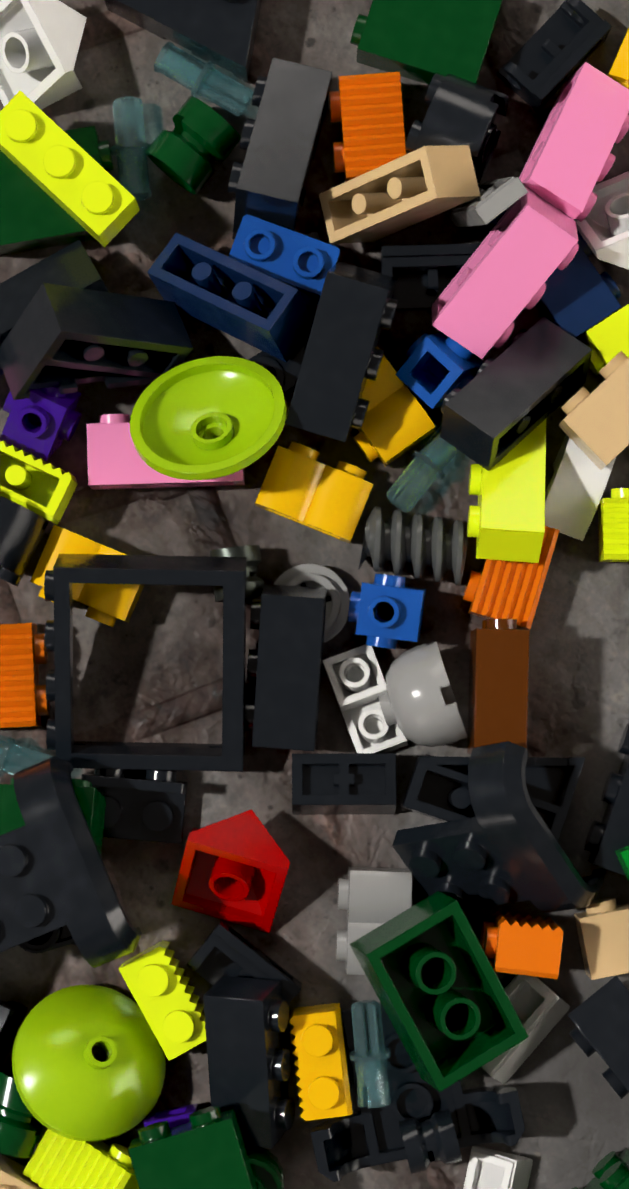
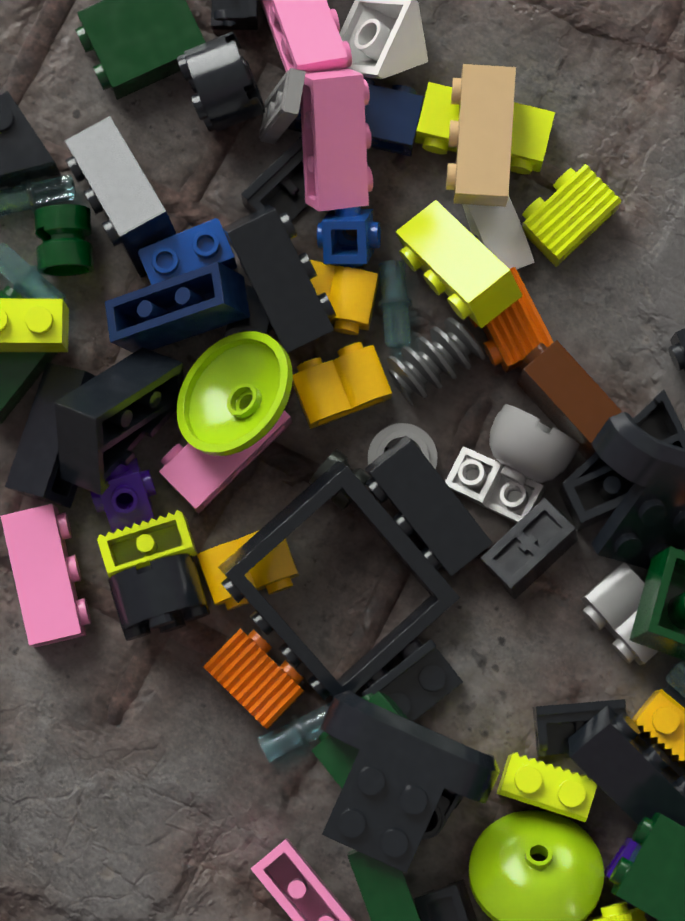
camera: 45 degrees left, 5 degrees down
(232, 872) = (513, 668): red slope -> none
(370, 122) = (165, 130): orange brick -> none
(399, 194) = (223, 150): tan brick -> none
(407, 606) = (468, 403): blue brick -> none
(514, 392) = (408, 206): black brick -> none

